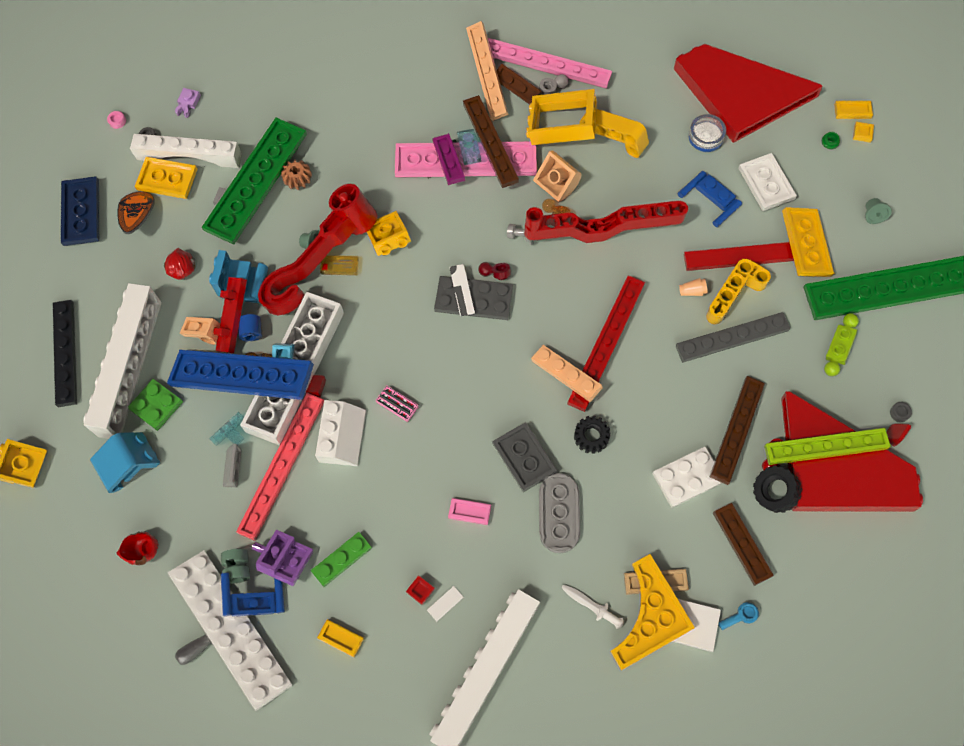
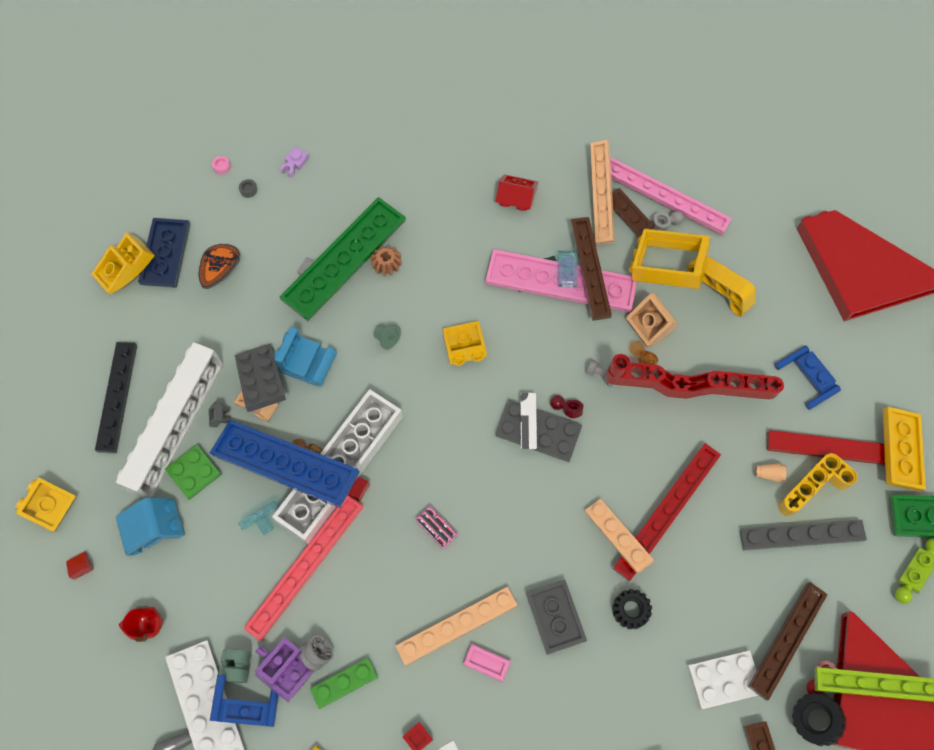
camera: 10 degrees right, 0 degrees up
(41, 229) = (122, 263): none -> yellow slope
(65, 512) = (78, 566): none -> red slope
(165, 347) = (216, 414): none -> dark grey tile
(166, 177) = (256, 236): yellow plate -> none
(179, 264) = (249, 329): red hair -> none
(199, 304) = (259, 378): none -> dark grey plate
(214, 151) = (255, 203): white arch -> none
(230, 315) = (292, 388): red hinge -> none
(232, 466) = (255, 556): light grey slope -> none
(250, 327) = (304, 412): blue piece -> none
(282, 350) = (332, 448): medium azure slope -> none
(309, 536) = (316, 652): none -> light grey wheel
(339, 265) = (409, 365): clear yellow tile -> none
(340, 433) = (372, 547): white slope -> none
(349, 216) = (430, 316): red piece -> none
(406, 87) = (516, 192): none -> red slope
(434, 486) = (456, 626): none -> light nougat plate
(448, 159) = (543, 278): magenta plate -> none
(559, 513) = (580, 687): light grey tile -> none
(707, 132) = (819, 306): clear piece -> none
(767, 182) = (872, 372): white plate -> none

